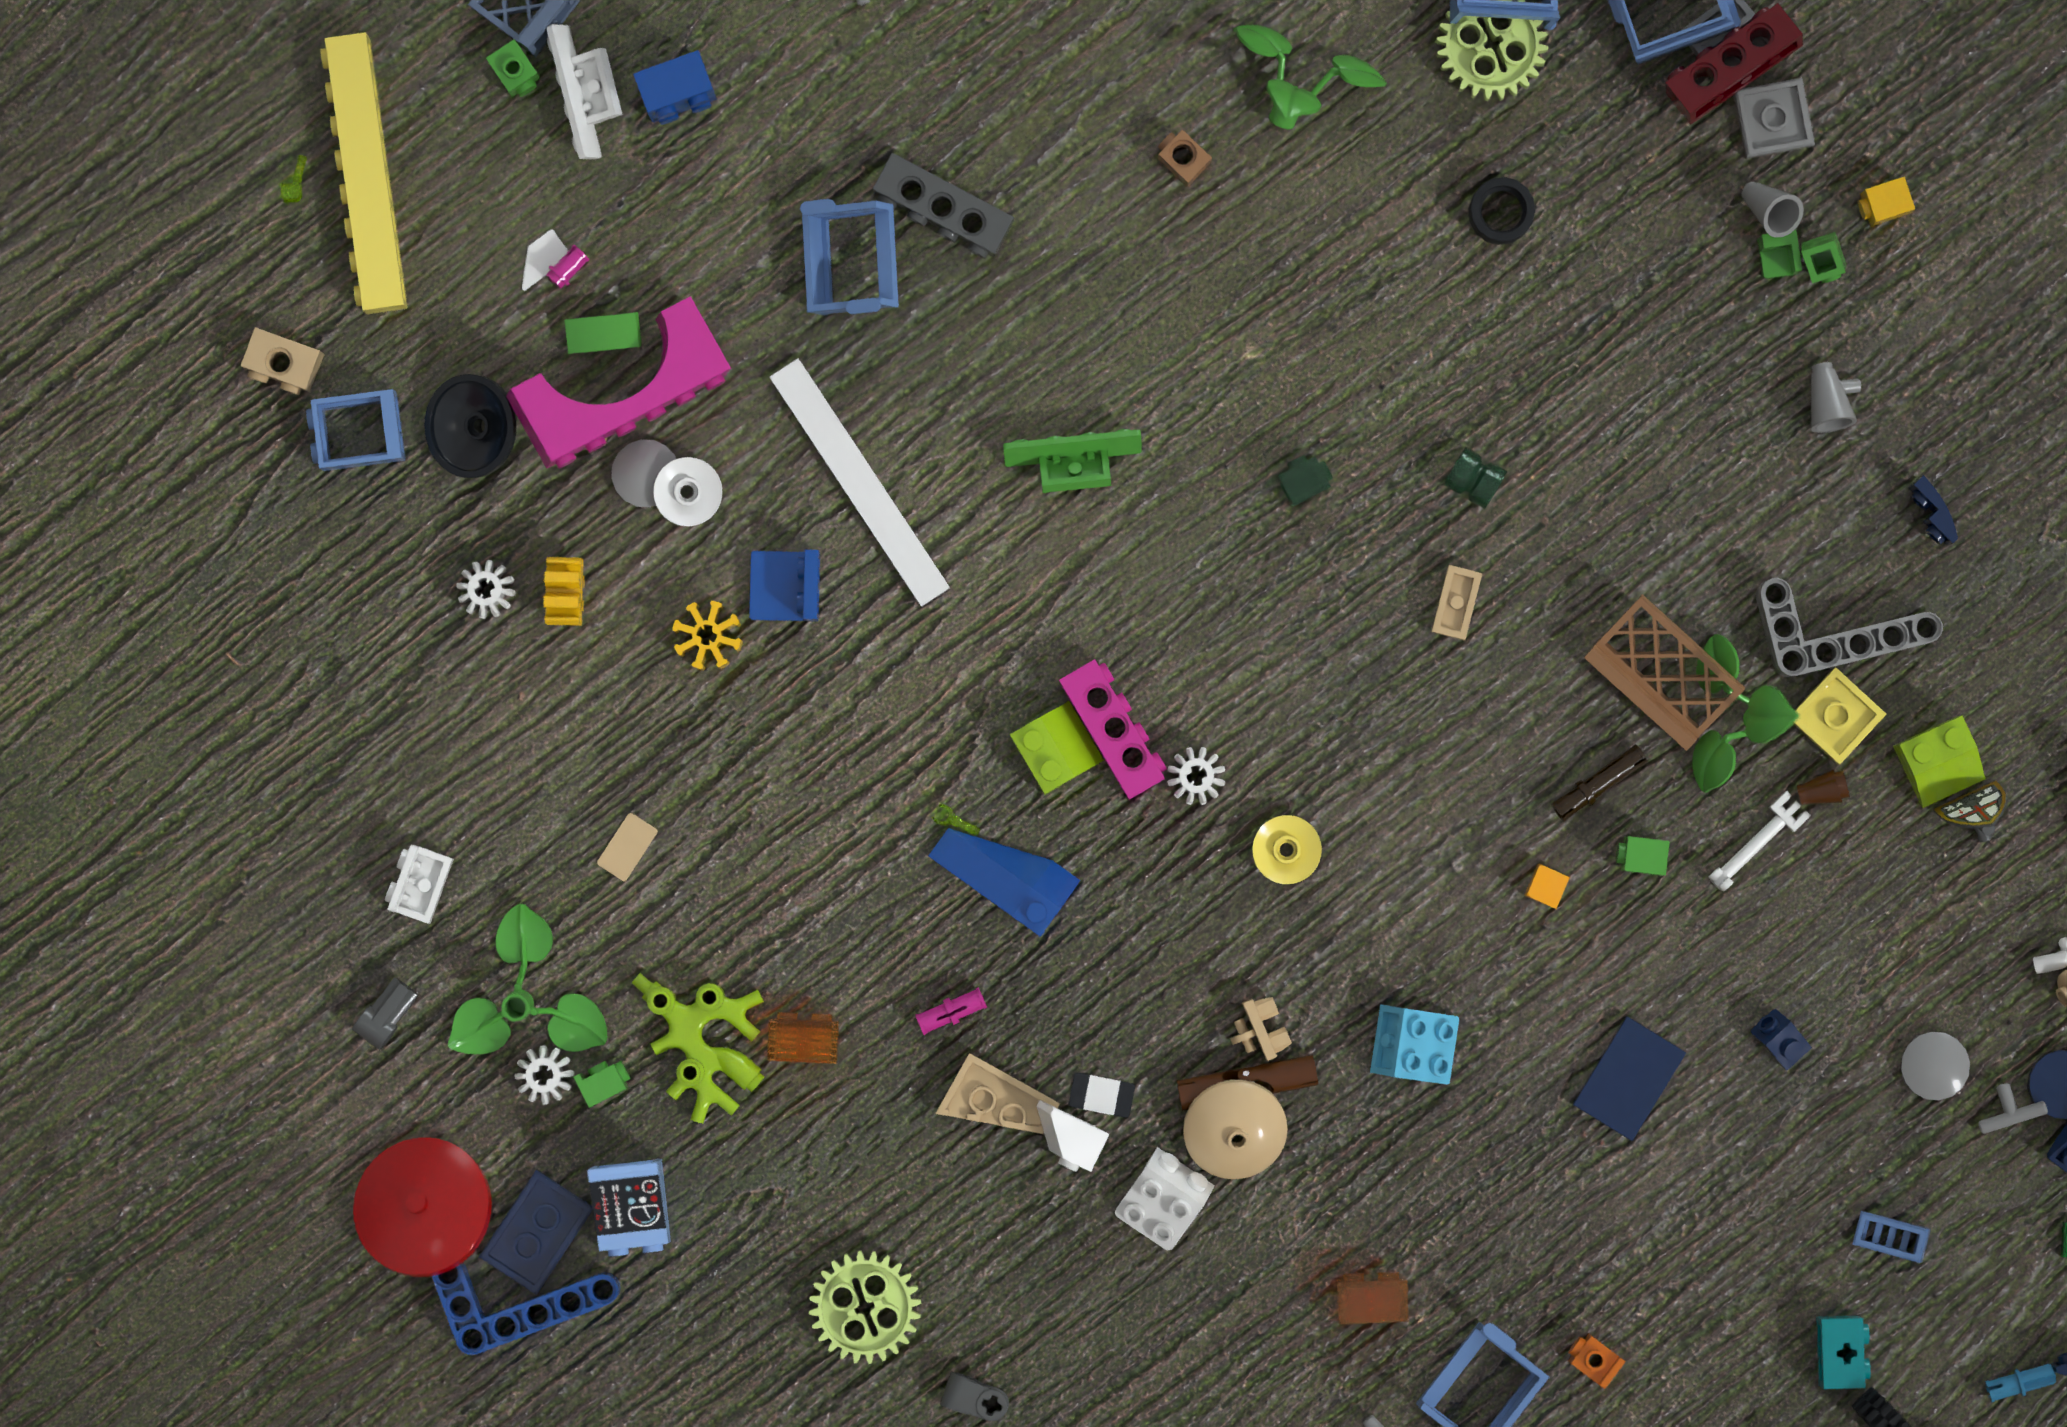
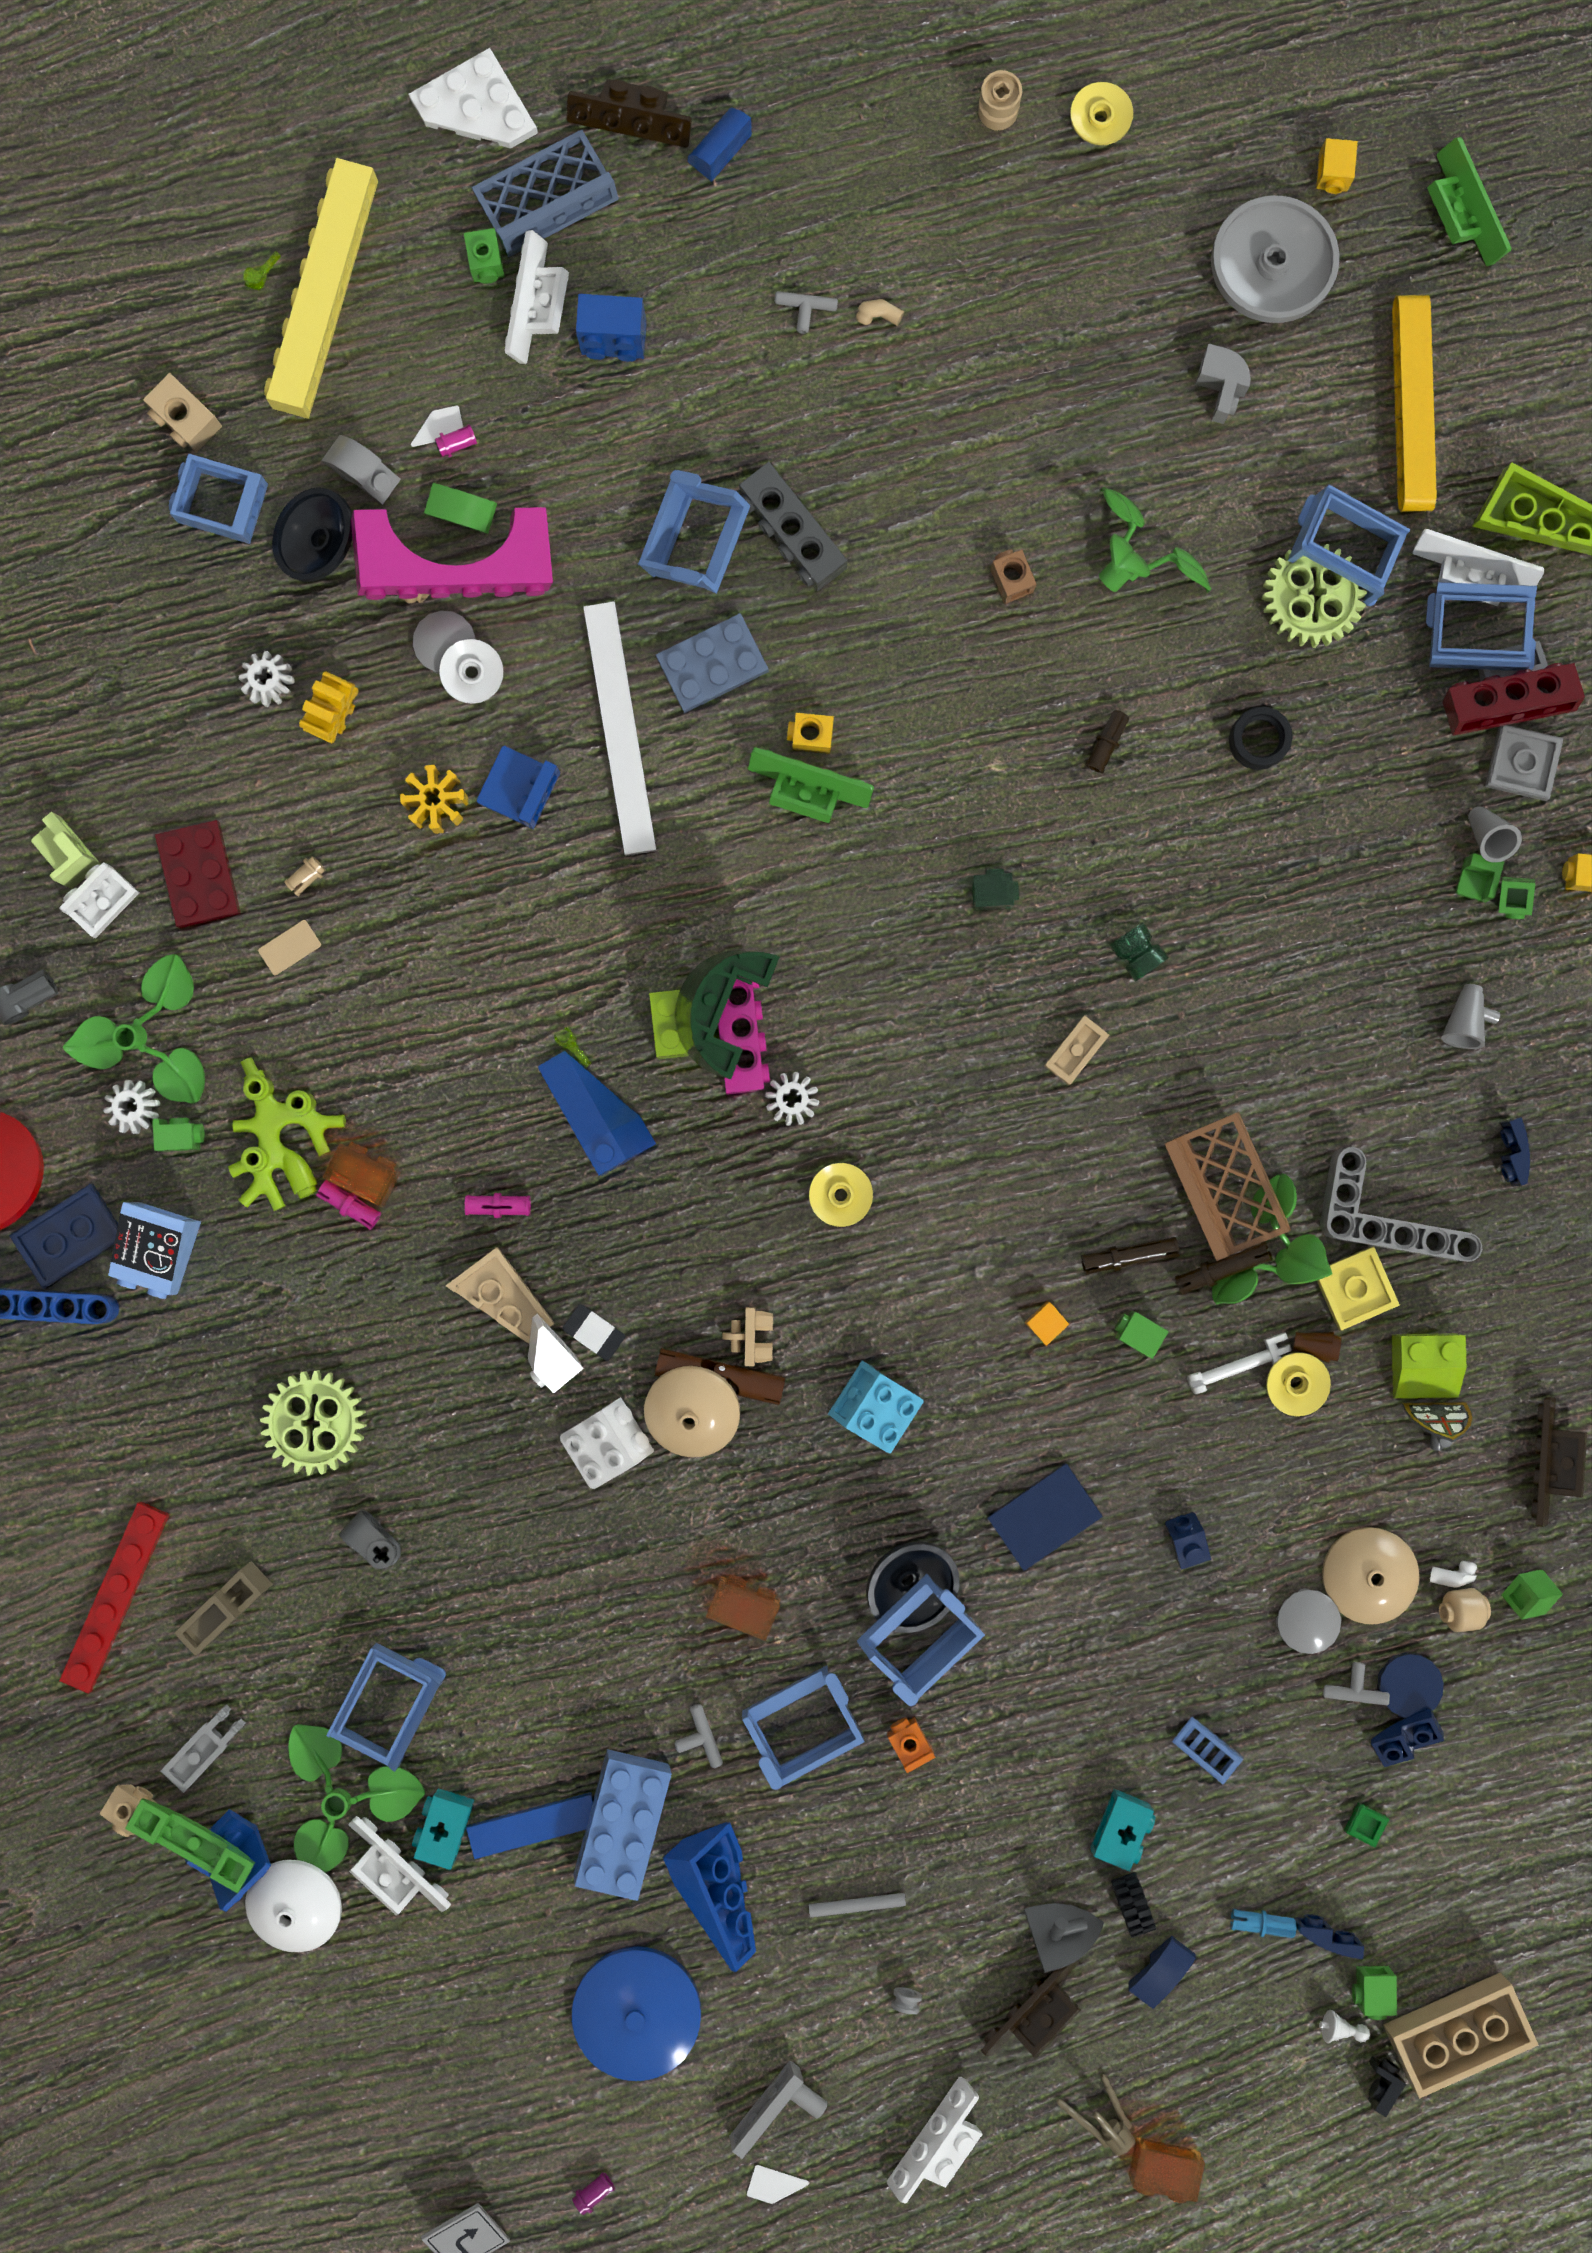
camera: 25 degrees right, 0 degrees up
(360, 851) = (64, 851): none -> yellowish green panel
(486, 337) = (361, 467): none -> light grey brick
(503, 814) = (197, 874): none -> dark red plate
(612, 768) = (305, 875): none -> tan pin
(802, 1076) = (348, 1204): none -> dark pink pin
(922, 376) = (712, 663): none -> sand blue plate
(1064, 392) = (821, 743): none -> yellow brick
(1071, 722) = (704, 1000): none -> dark green cylinder
(1351, 280) = (1107, 741): none -> dark brown axle
(1545, 1206) = (917, 1559): none -> black dish
(1586, 1260) = (937, 1658): none -> medium blue piece
(1687, 764) = (1210, 1273): none -> dark brown pin
(1837, 839) = (1311, 1391): none -> light yellow dish
(1952, 991) = (1353, 1563): none -> tan dish

